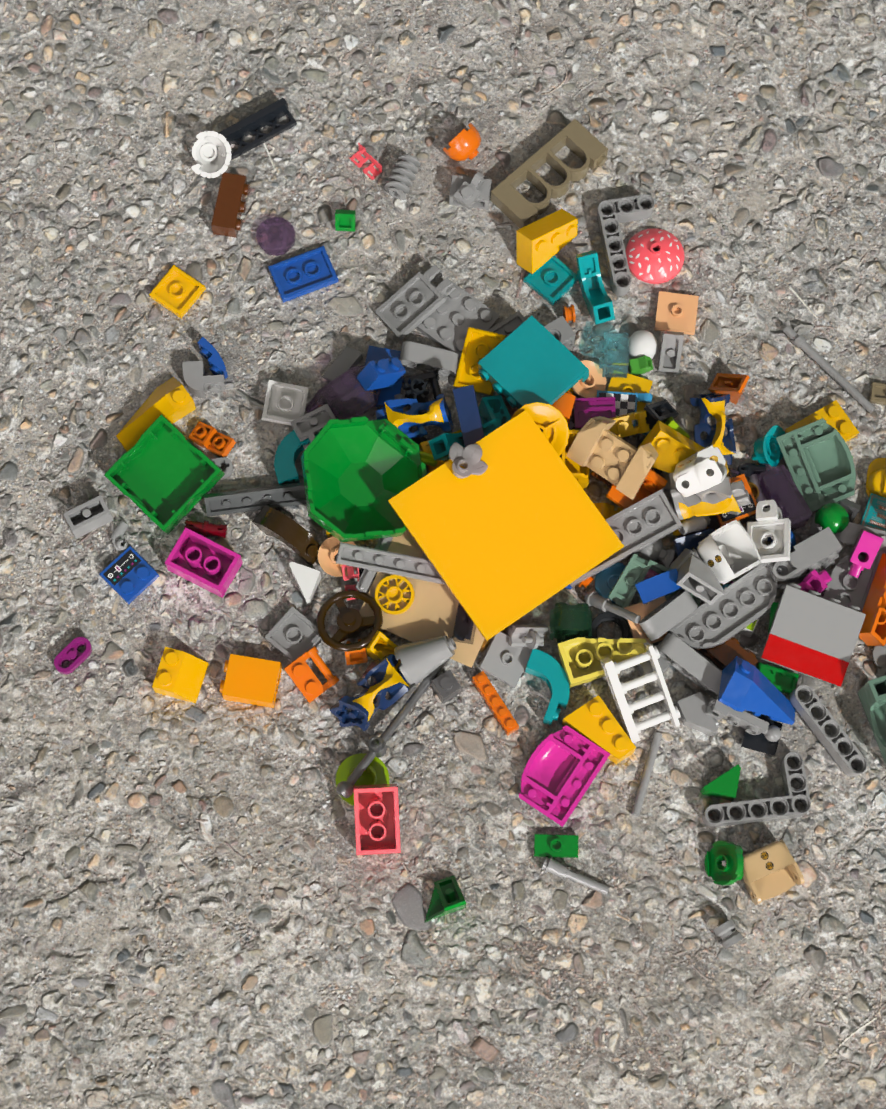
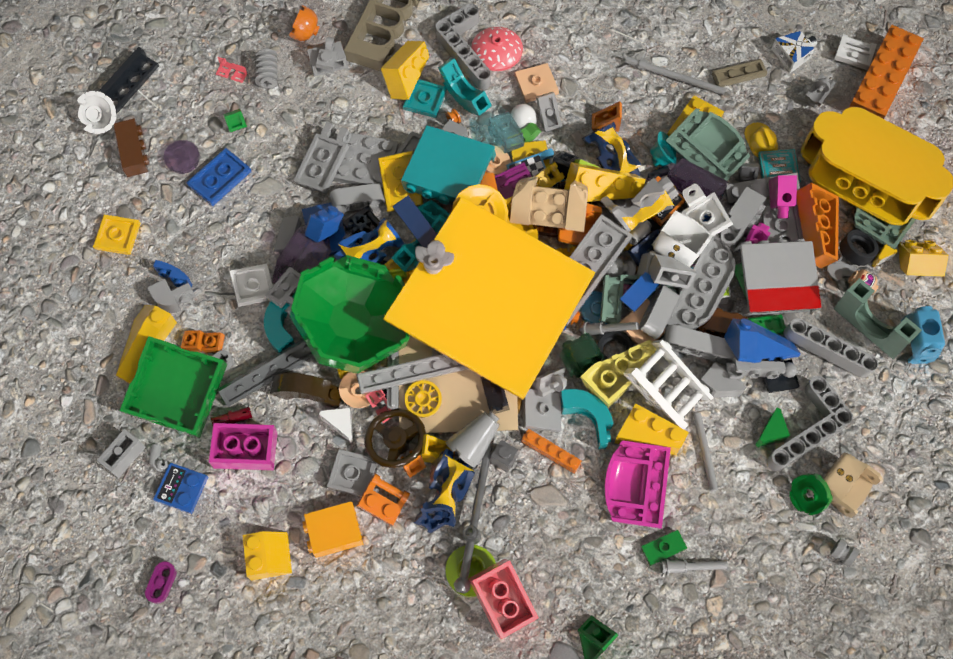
camera: 25 degrees left, 5 degrees down
(700, 472) = (628, 186): white piece -> none
(832, 516) = (741, 179): green hair -> none

